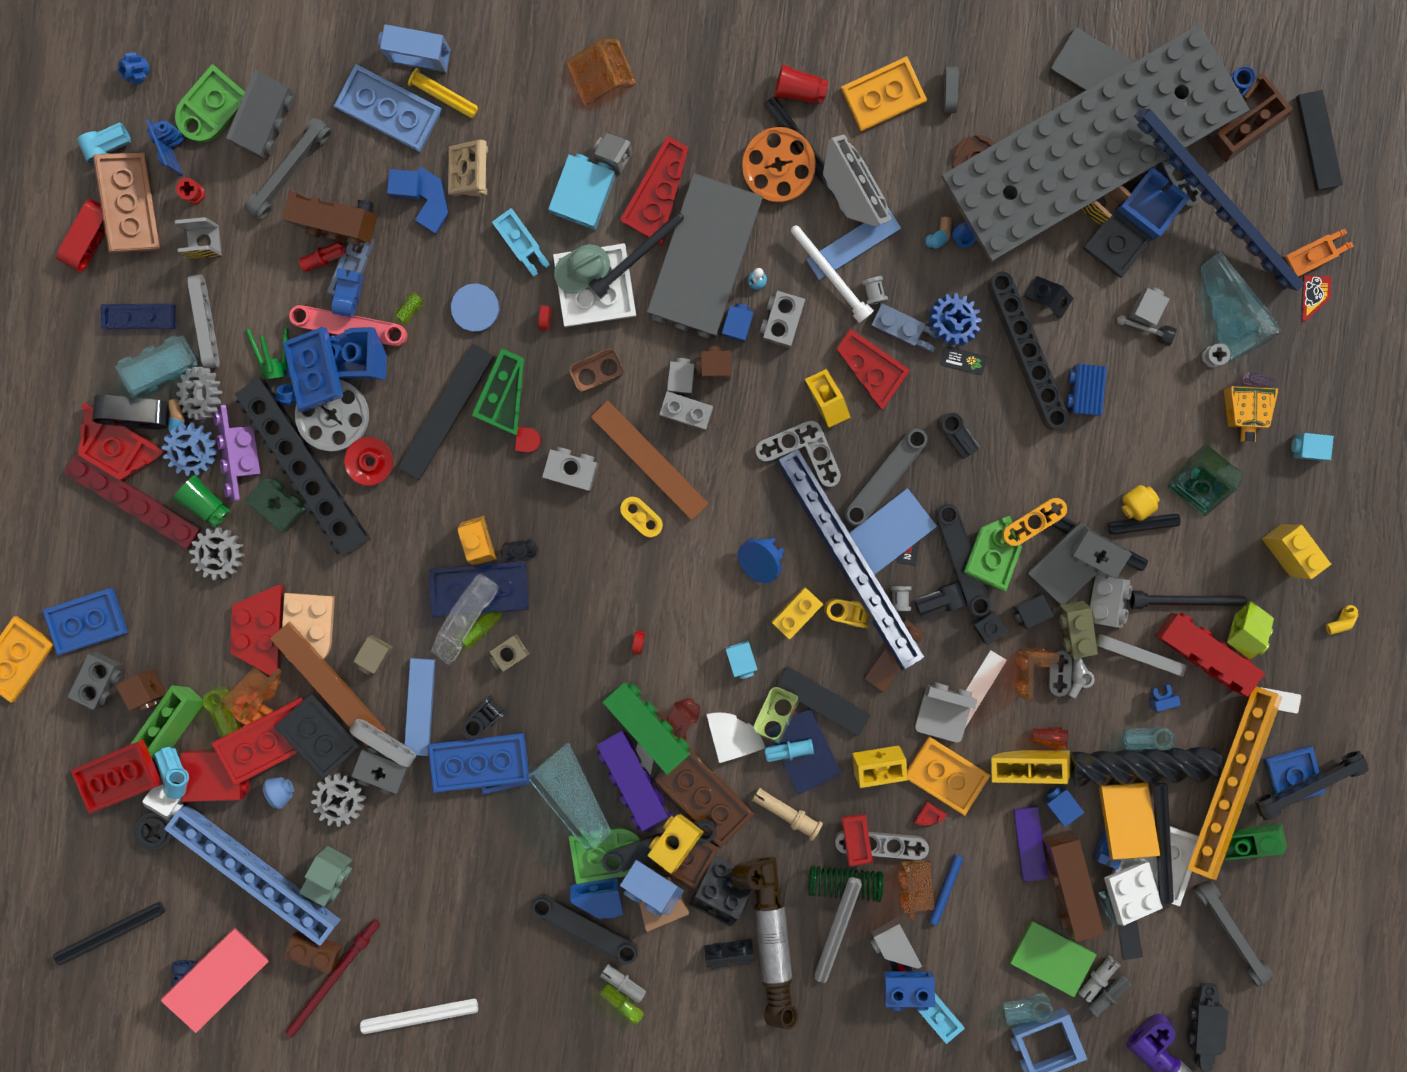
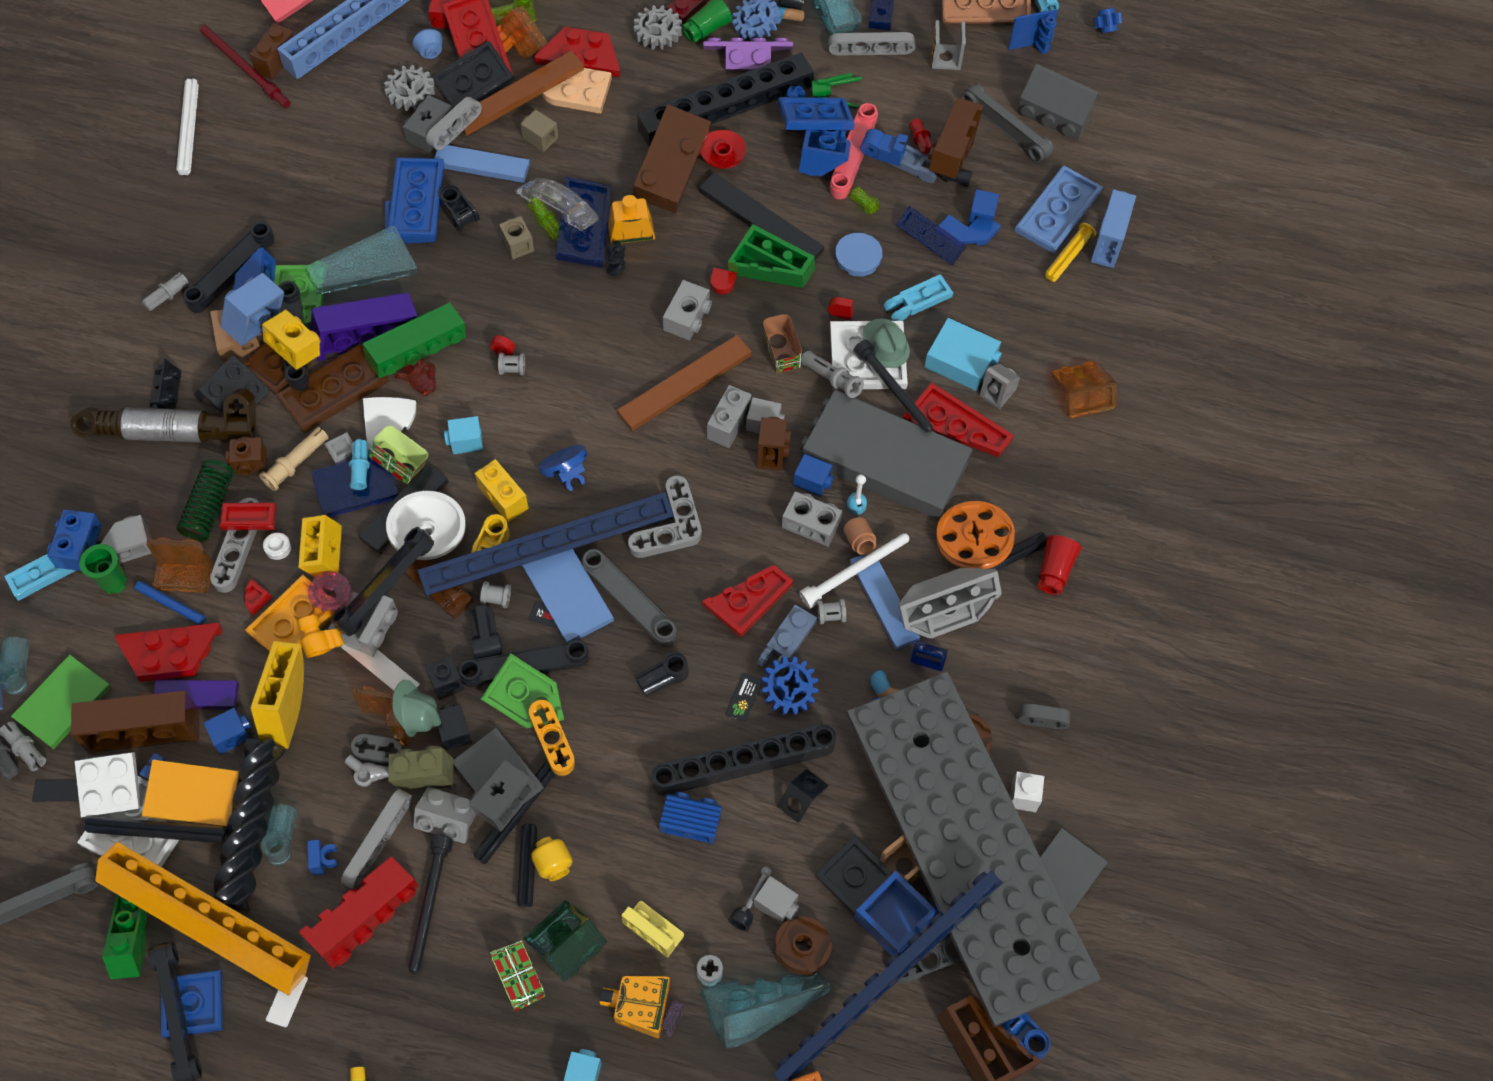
camera: 95 degrees right, 25 degrees down
(186, 185) = (998, 44): red bush -> none
(199, 393) = (806, 29): light grey gear -> none
(211, 103) = (1073, 67): bright green tile -> none
(263, 501) = (694, 73): clear green brick -> none
(325, 876) = (342, 67): sand green brick -> none
(331, 426) = (770, 137): light grey wedge -> none
(397, 510) = (671, 158): none -> reddish brown brick
(443, 236) = (931, 235): none -> clear blue tile
(457, 156) = (995, 258): tan piece -> none
(622, 1004) = (144, 288): clear neon green axle -> none
(633, 307) = (838, 377): none -> light grey pin
(641, 517) = (627, 367): yellow plate -> none
(656, 630) = (504, 368): none -> light grey bush
(768, 773) = (340, 448): none -> light grey tile
(792, 849) = (247, 455): none -> reddish brown brick
(796, 272) = (860, 536): none -> nougat brick
(827, 398) = (721, 549): yellow slope -> none
(838, 929) = (159, 482): light grey axle -> none
(842, 692) = (434, 514): none -> white dish
(876, 808) = (277, 546): none -> white tile
(883, 94) = (1044, 651): light orange tile -> none
(906, 197) = (929, 650): none -> clear blue piece
(913, 699) = (349, 618): none -> black piece
(933, 744) = (330, 581): none -> clear pink gear
(937, 962) = (103, 567): none -> green plant
(970, 748) = (317, 641): none -> light orange piece
(995, 879) = (168, 651): none -> red wing
(1025, 100) = (1027, 791): none -> white brick
(1036, 643) = (414, 709): none -> sand green piece
(1051, 737) = (306, 732): clear red cone -> none
(1187, 408) = (652, 928): none -> light yellow bracket
(1196, 273) = (806, 961): none -> reddish brown plate
(1241, 513) = (517, 975): none -> piece
(1250, 631) = (376, 959): lime brick -> none
(1296, 551) = (458, 1025): yellow brick -> none

